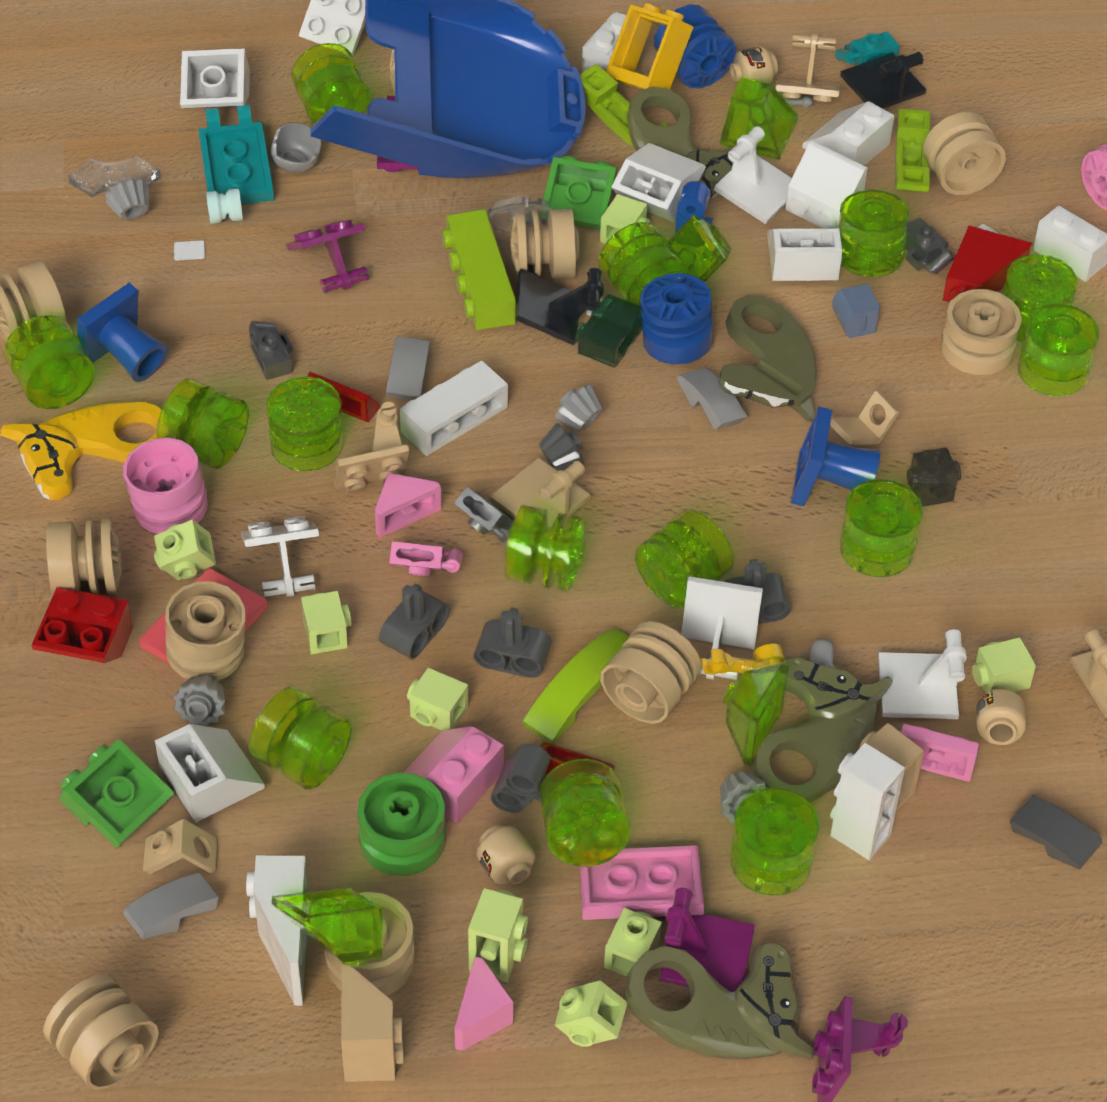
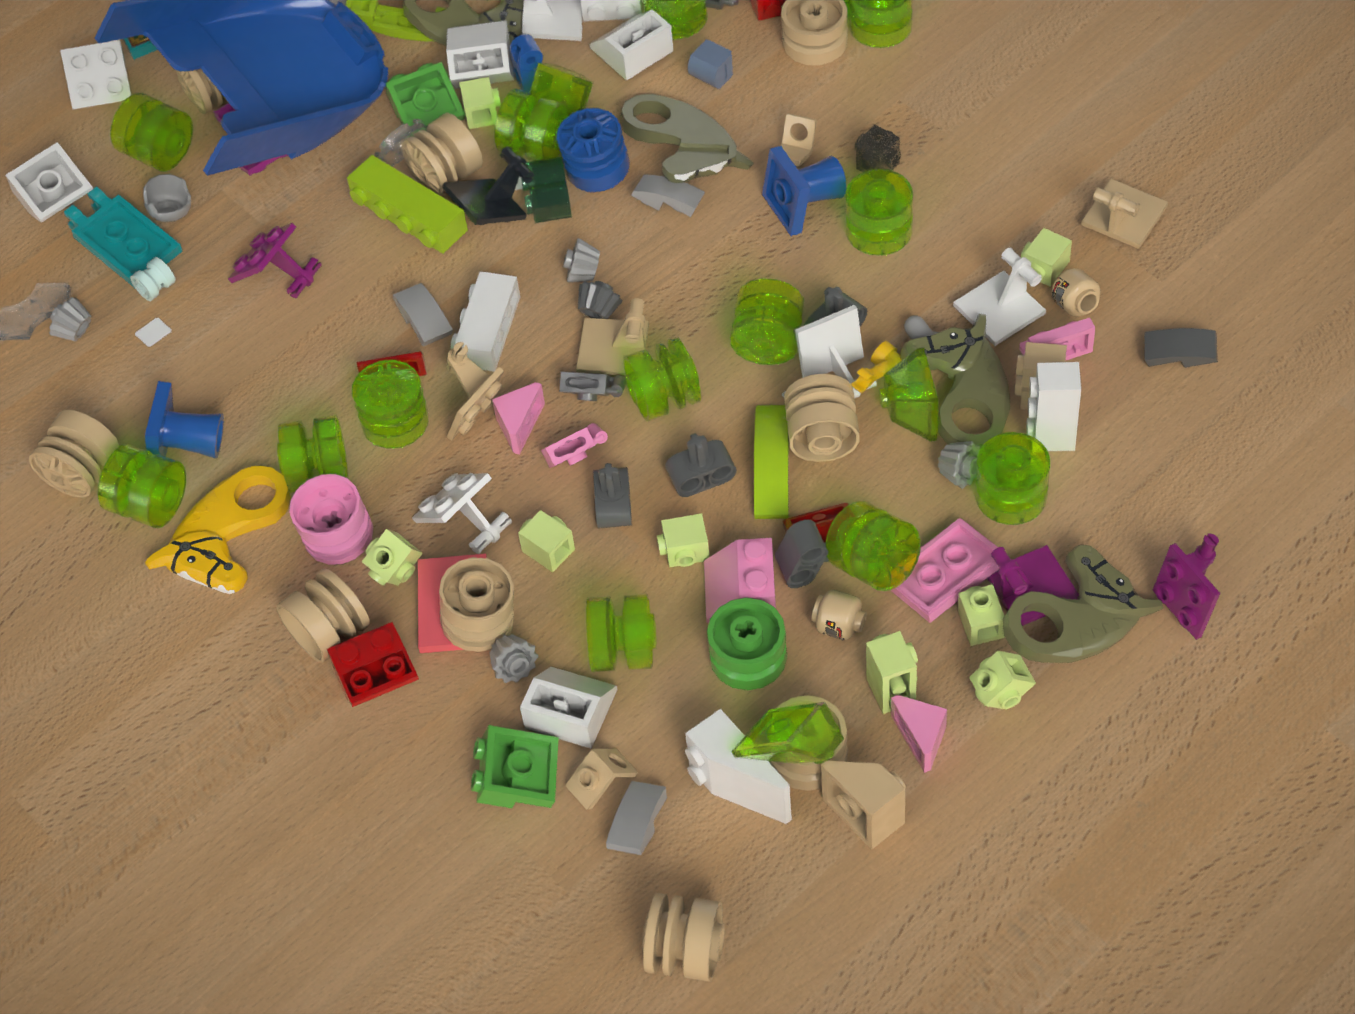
camera: 30 degrees left, 5 degrees up
(270, 350) = (299, 367): flat silver piece -> none

